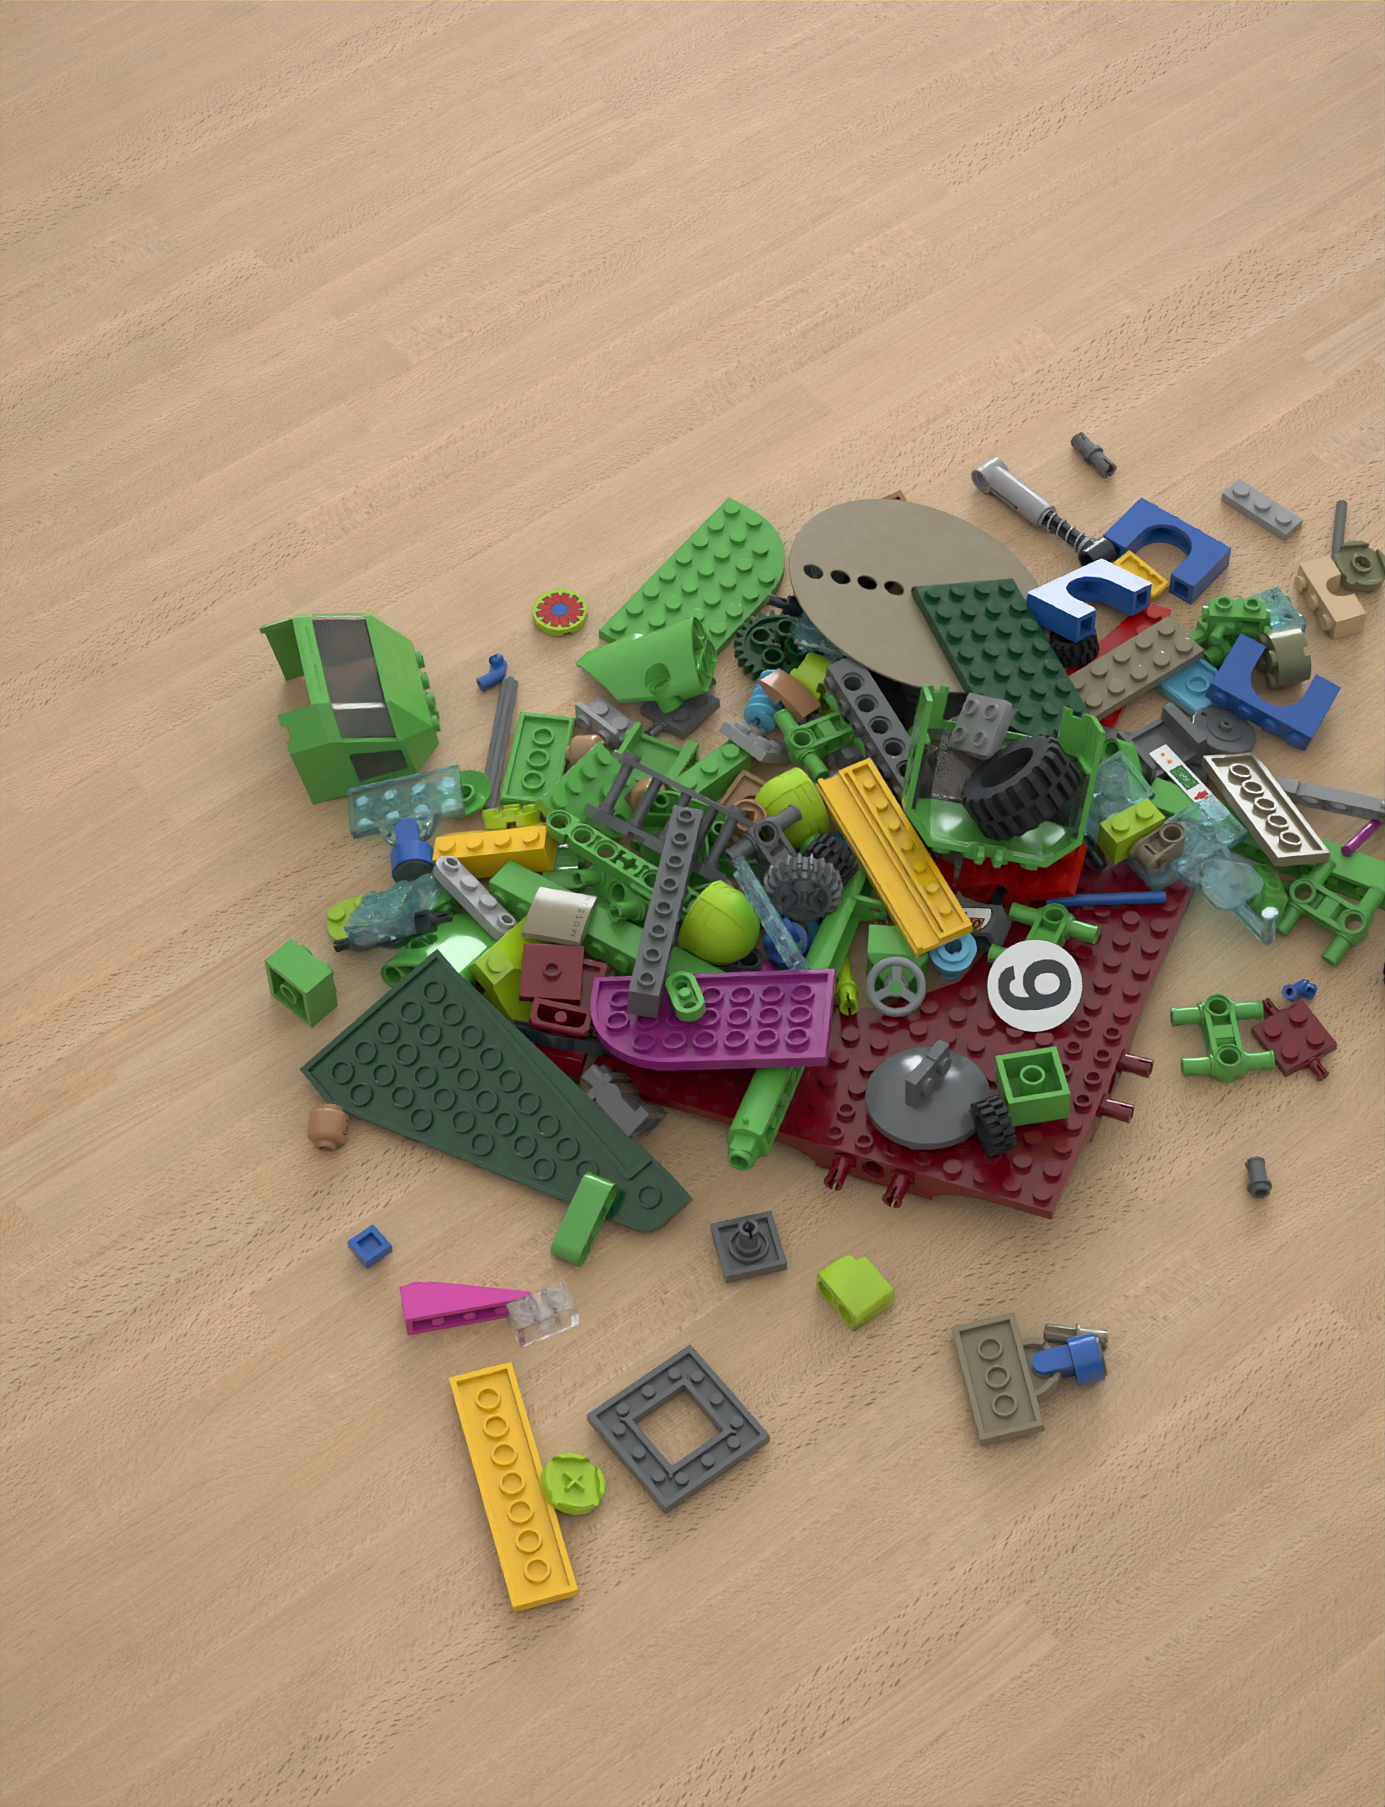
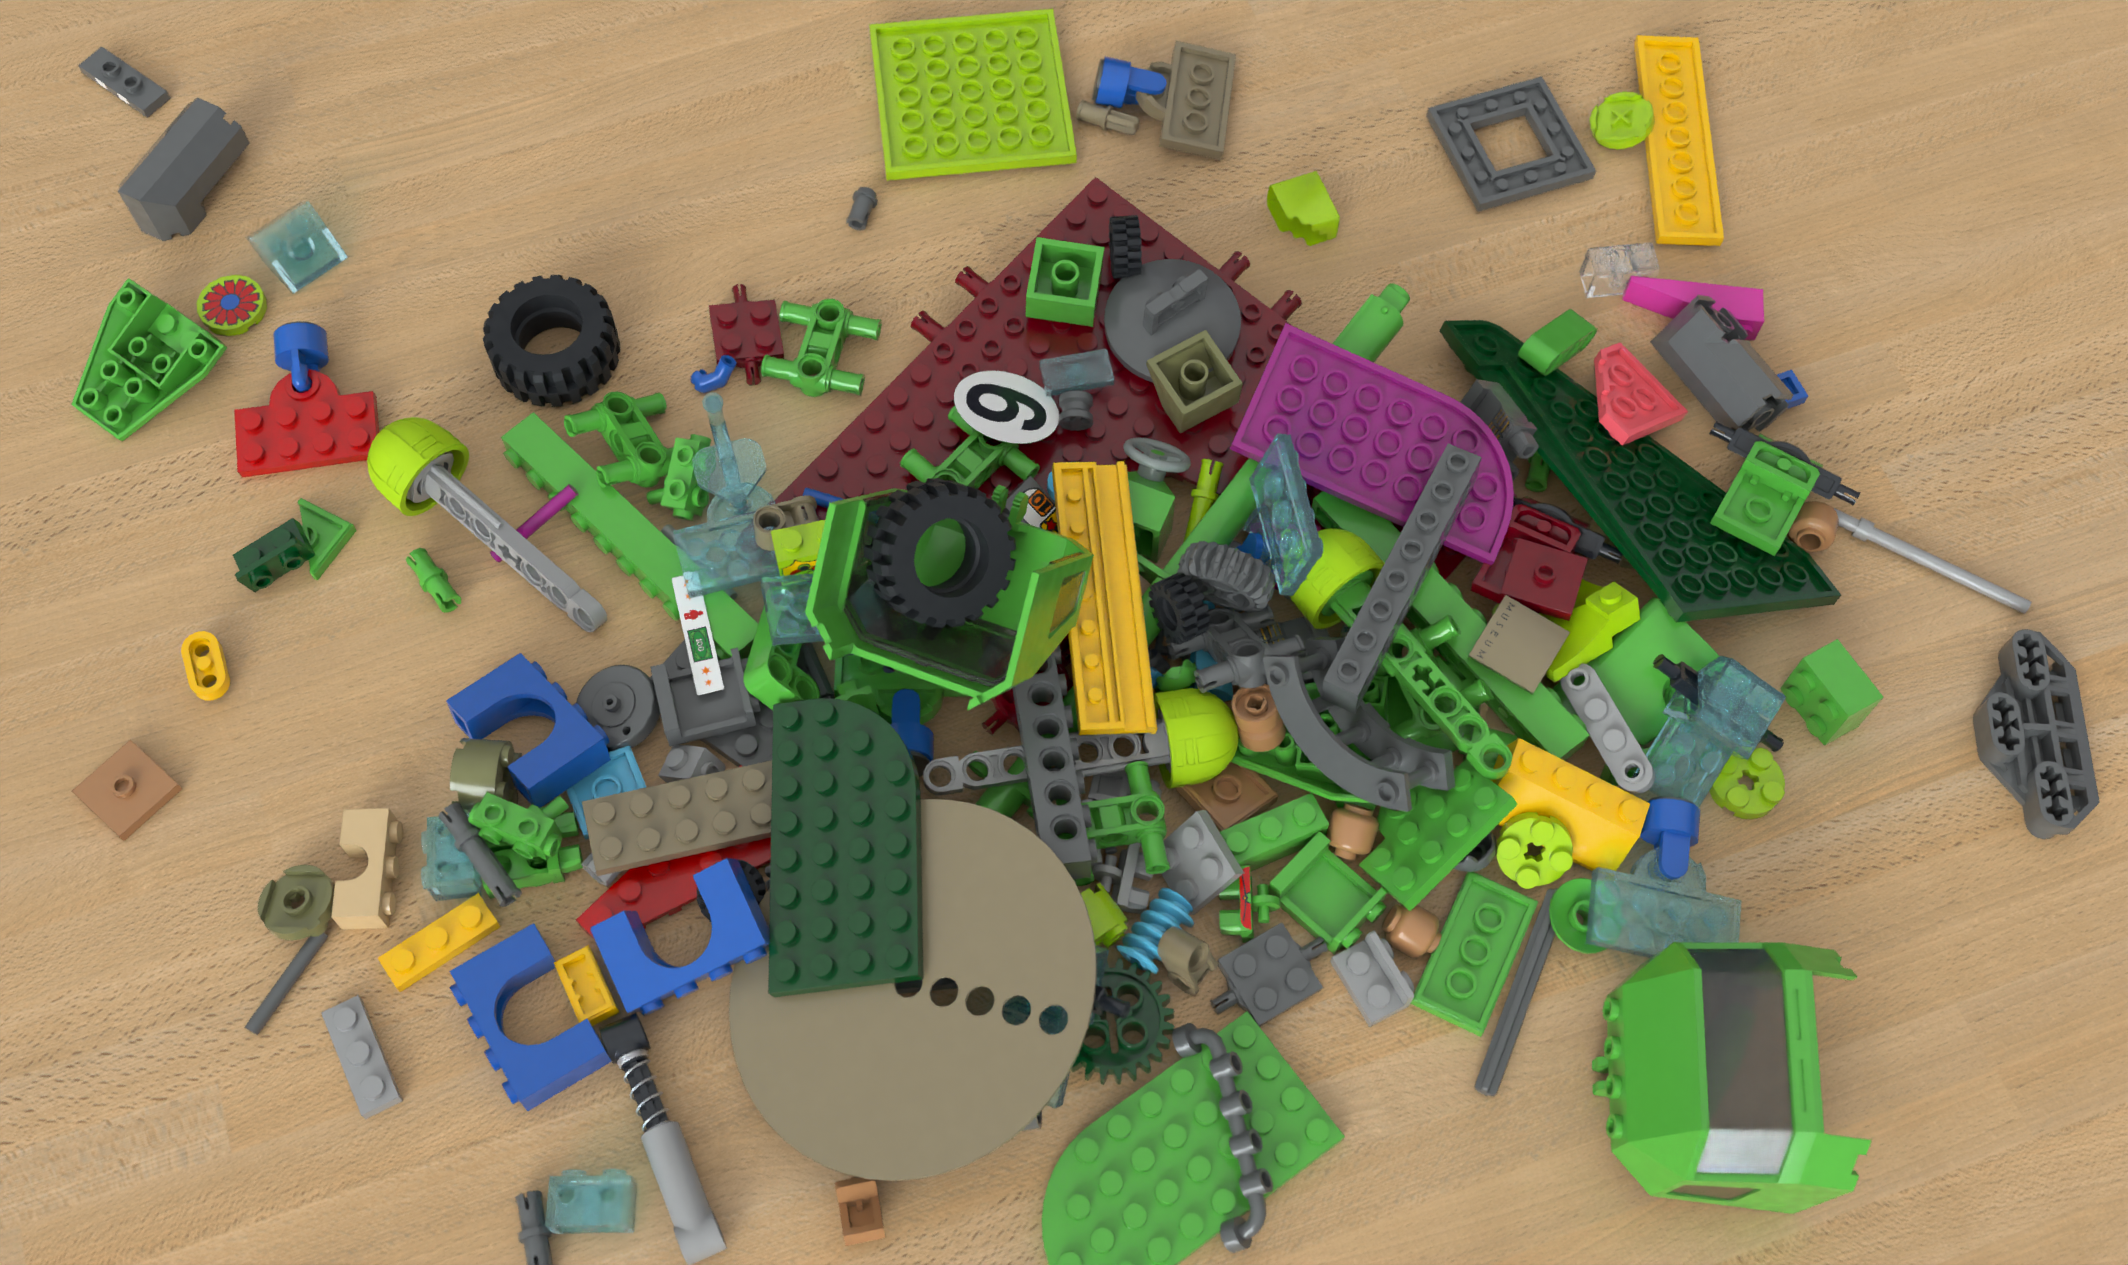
camera: 165 degrees left, 10 degrees up
(134, 1011) = (2022, 730): none -> dark grey connector
(281, 1145) = (1864, 529): none -> light grey bar
(370, 1130) = (1770, 488): none -> bright green piece
(431, 1228) = (1722, 367): none -> dark grey brick
(496, 672) = (1500, 1112): blue arm -> none
(507, 1187) = (1630, 397): none -> coral plate
(559, 612) = (1389, 1194): tile -> none
(650, 575) = (1244, 1143): none -> dark grey bar
(656, 666) = (1298, 1013): bright green panel -> none
(685, 996) = (1409, 467): bright green plate -> none
(708, 733) = (1241, 921): none -> bright green hips
(739, 687) = (1185, 959): none -> dark tan piece
(748, 1246) = (1403, 269): dark grey plate -> none
(795, 697) = (1136, 897): medium nougat slope -> none
(885, 1040) = (1186, 386): none -> olive slope
(977, 1006) = (1075, 410): none -> dark grey wheel
(981, 726) = (949, 643): light grey bracket -> none
(991, 1036) = (1076, 372): none -> clear light blue plate
(1066, 472) = (591, 1202): none -> clear light blue brick
(1141, 712) = (689, 762): none -> light grey bracket
(1218, 1325) = (971, 94): none -> lime plate
(1257, 573) = (438, 942): none -> yellow plate
(1265, 809) = (635, 561): dark tan plate -> none
(1278, 614) = (479, 854): none -> dark grey pin

